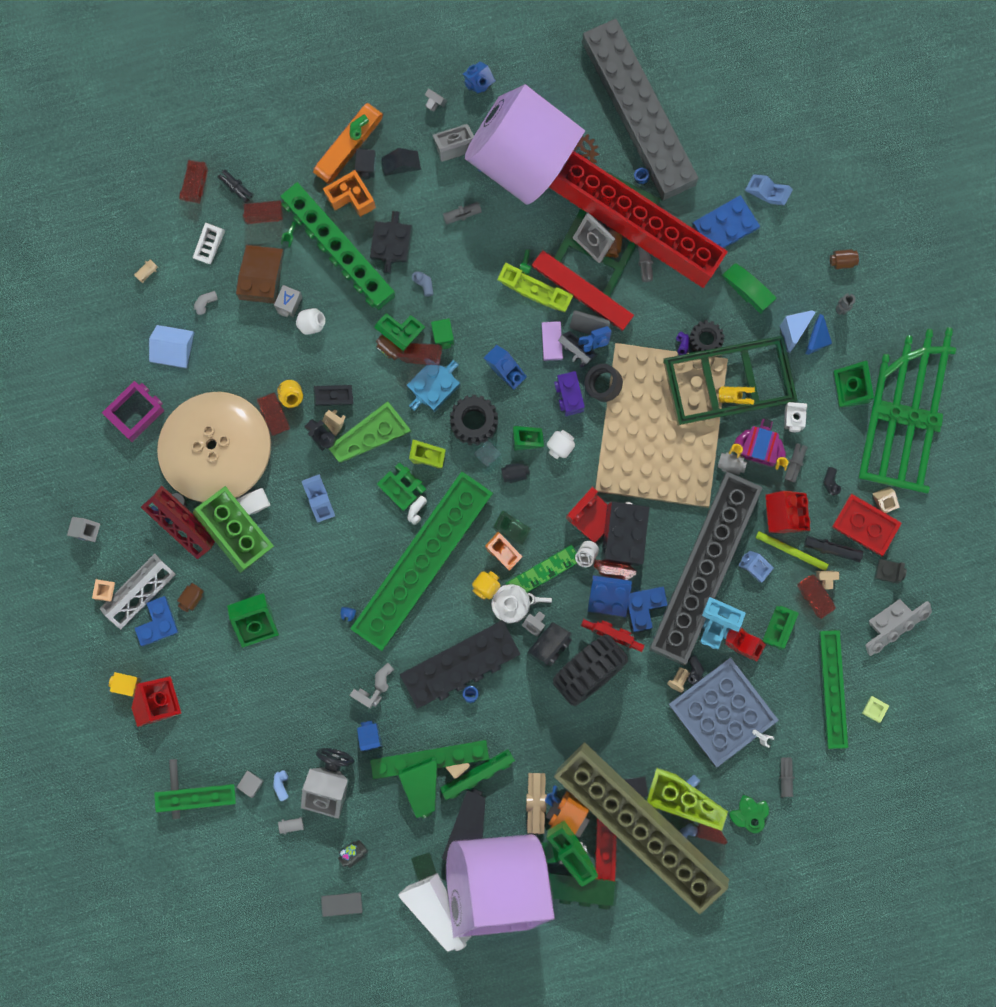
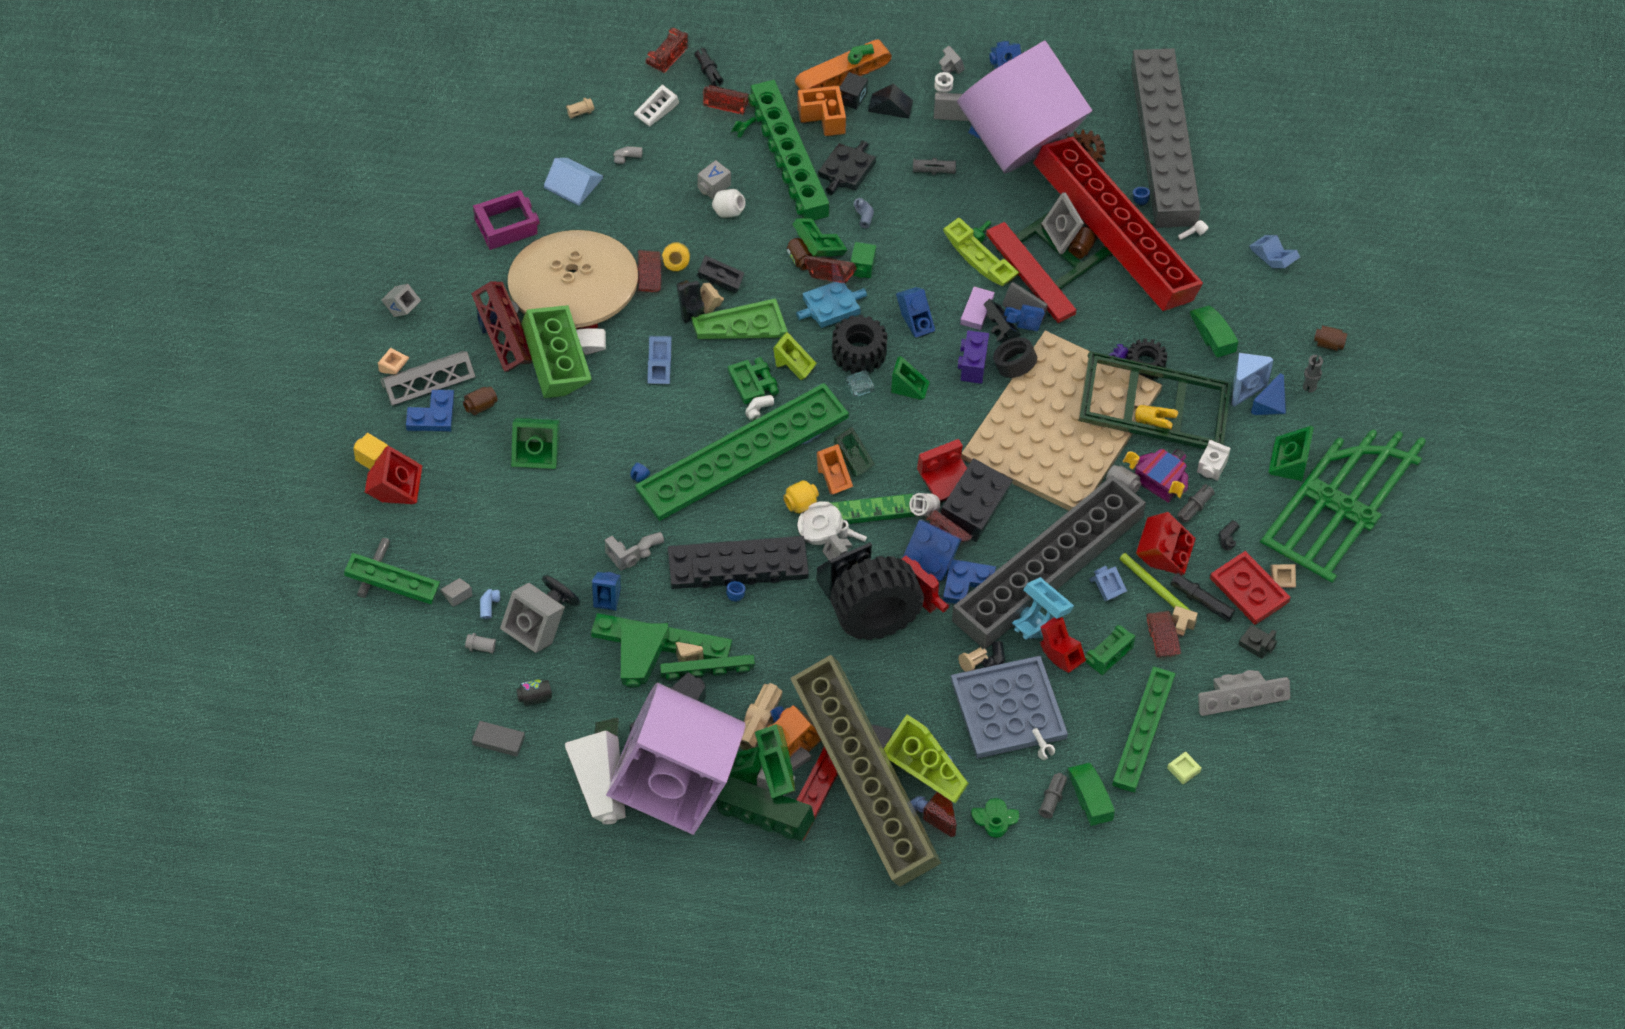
camera: 20 degrees right, 25 degrees down
(260, 274) = (694, 149): reddish brown slope -> none
(433, 127) = (946, 77): none -> white bush
(515, 472) = (882, 407): black brick -> none
(560, 444) = (943, 398): white head -> none
(646, 265) = (1110, 272): dark grey axle -> none
(699, 189) = (1200, 227): none -> white hand
(727, 223) = (1218, 267): blue plate -> none
(815, 764) = (1091, 794): none -> green slope

